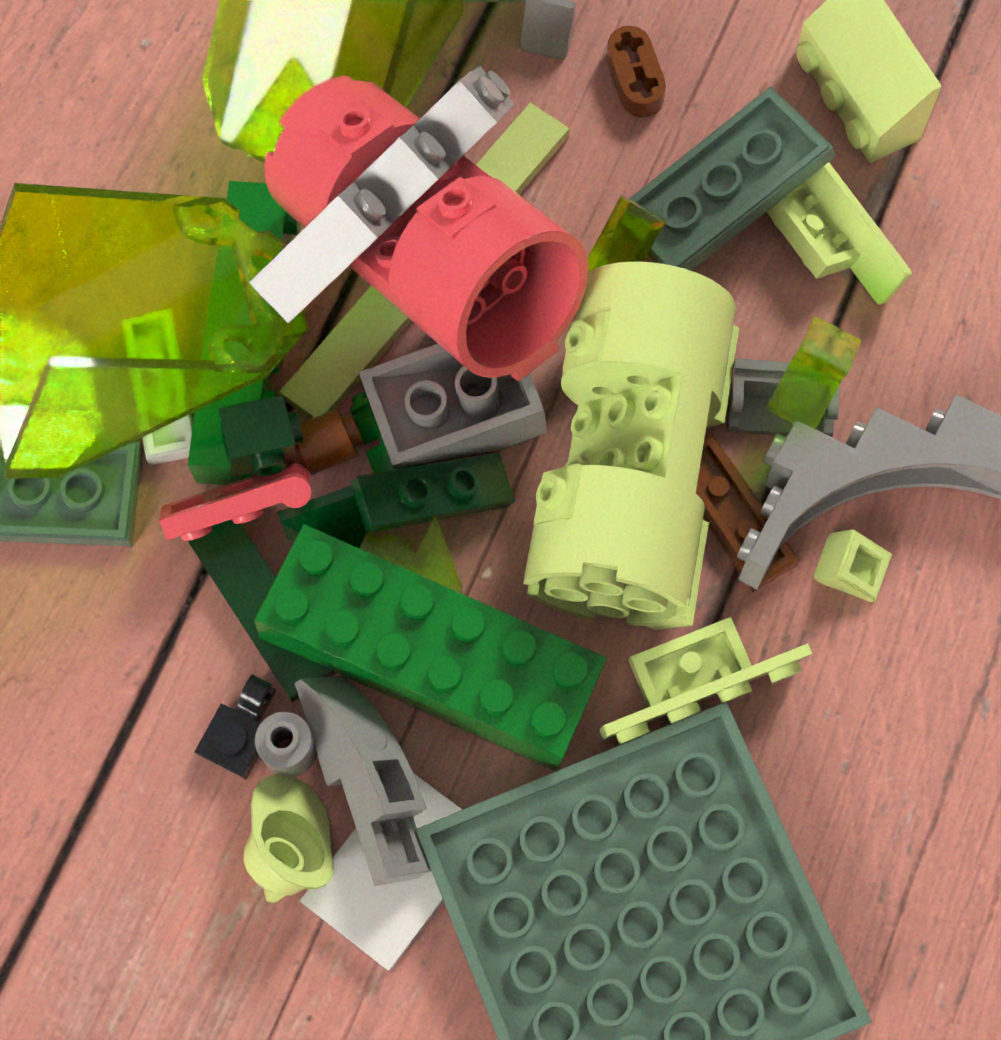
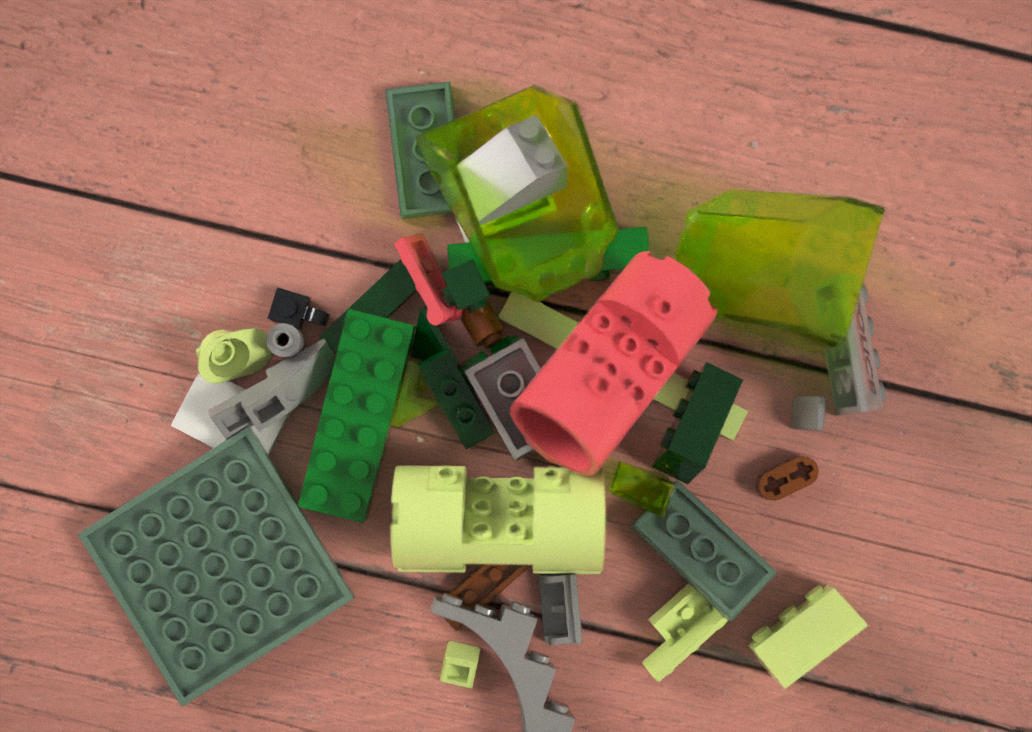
camera: 80 degrees right, 15 degrees up
(90, 312) = (513, 170): none -> slope
(383, 192) = (626, 346): arch -> none
(552, 165) = (697, 423): none -> dark green wedge
(694, 669) = (371, 578): yellowish green bracket -> none
(814, 373) = (571, 626): clear neon green slope -> none

